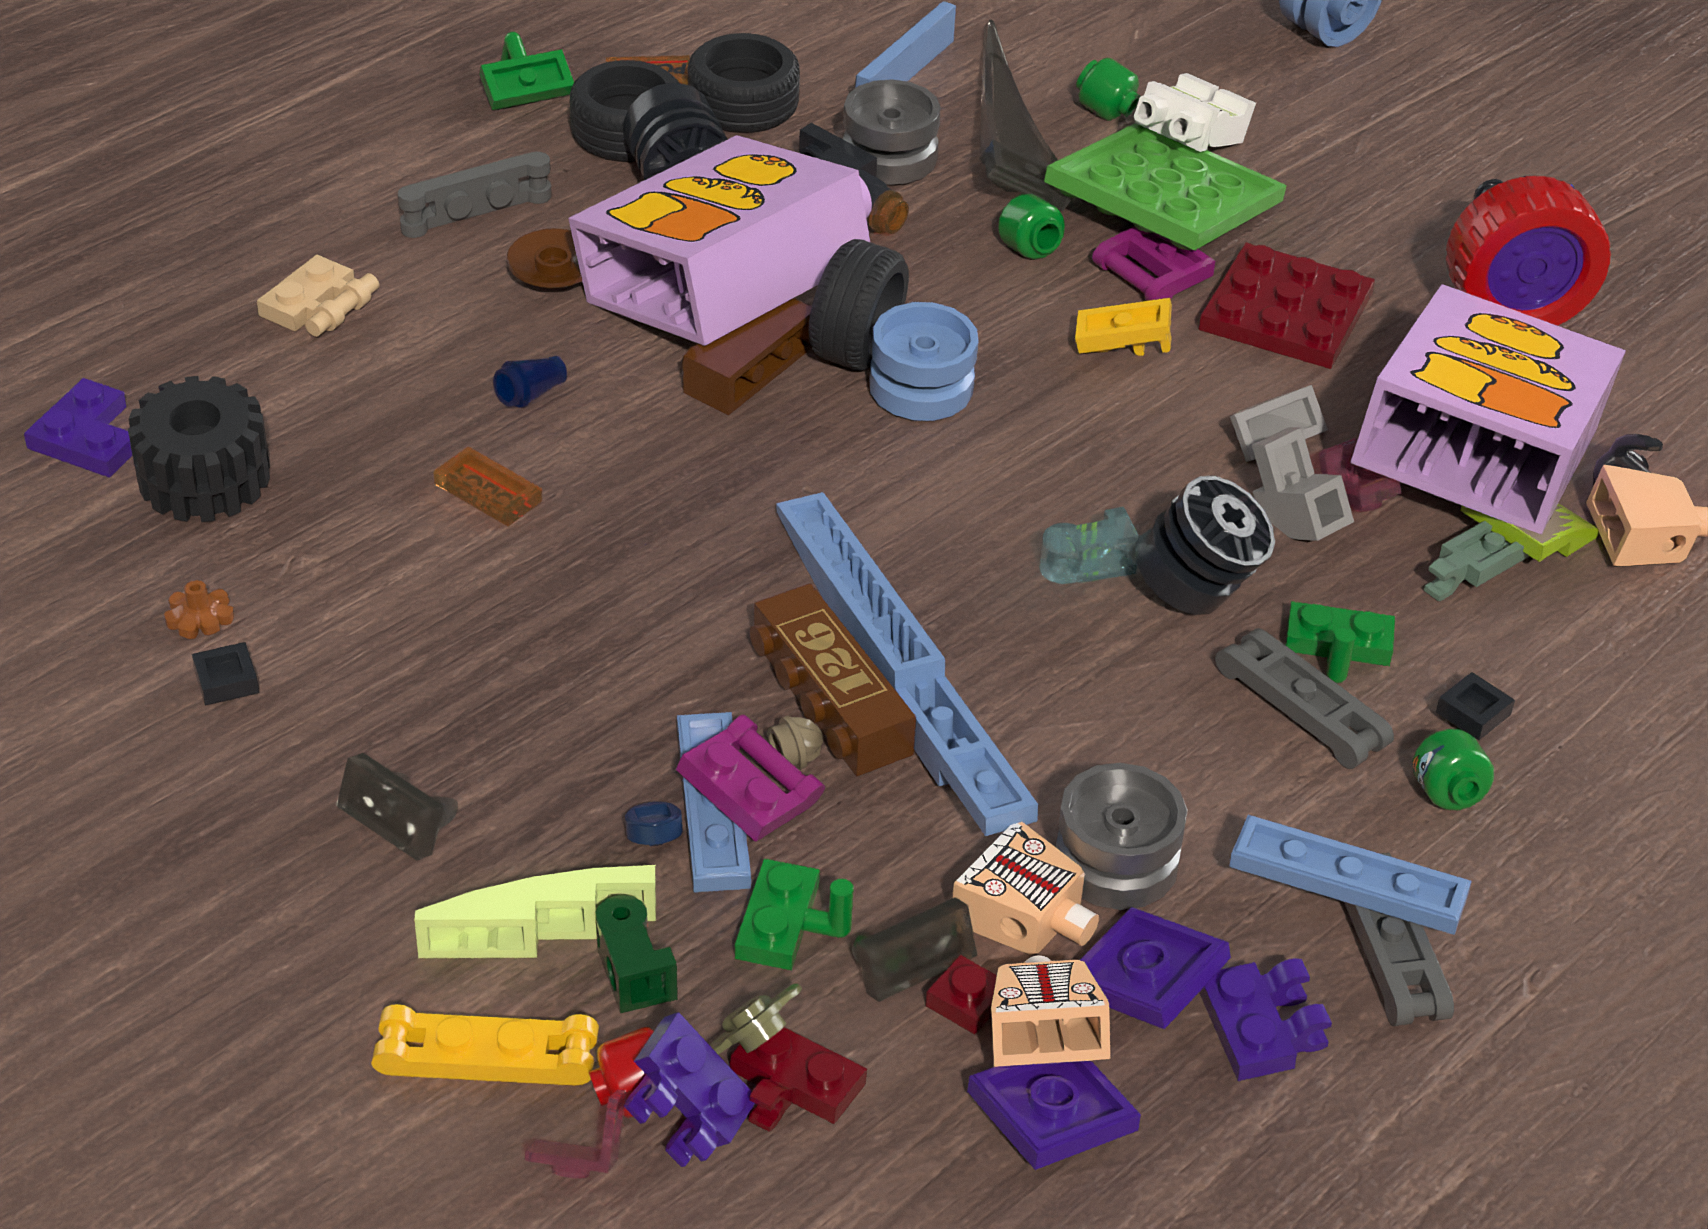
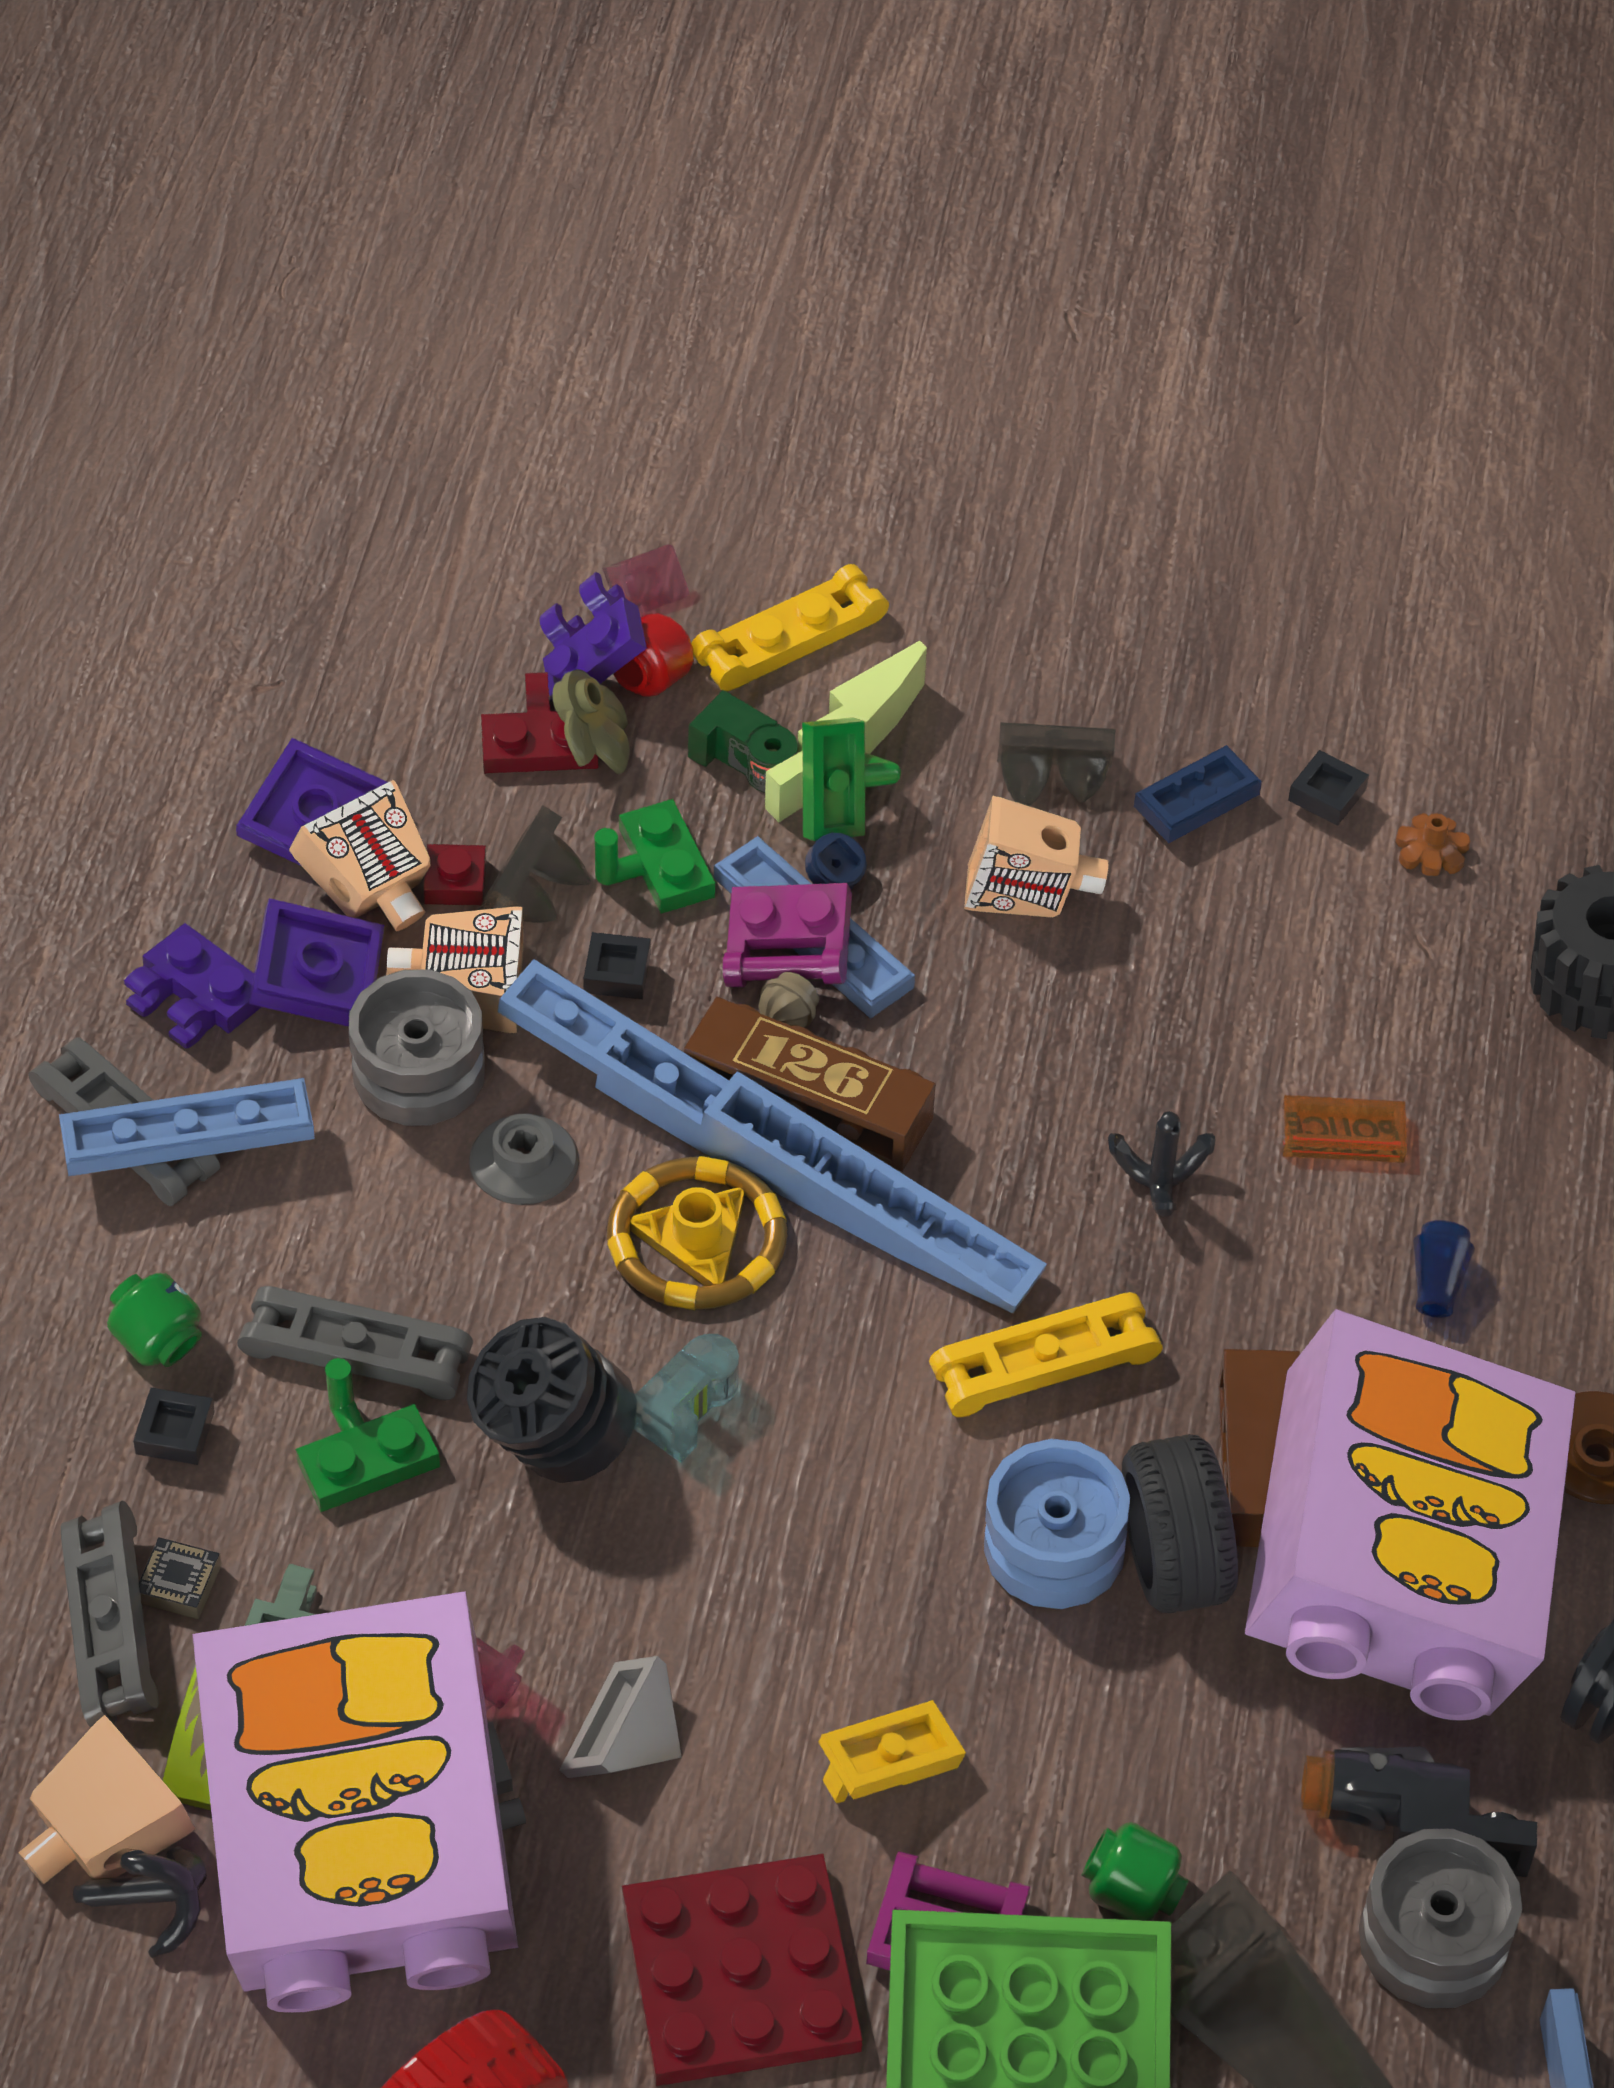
camera: 145 degrees right, 10 degrees up
(323, 723) = (1197, 794): none -> dark blue plate
(524, 720) = (1028, 862): none -> light nougat torso
(593, 847) = (837, 776): none -> green plate
(647, 505) = (1164, 1168): none -> black piece
(829, 461) = (1044, 1352): none -> yellow plate
(900, 838) = (617, 965): none -> black plate
(999, 647) = (696, 1232): none -> yellow piece
(1071, 753) = (519, 1176): none -> dark grey piece
(1293, 495) = (515, 1596): light grey brick -> none
(1521, 630) = (179, 1578): none -> tile
(1588, 621) = (107, 1614): none -> dark grey plate

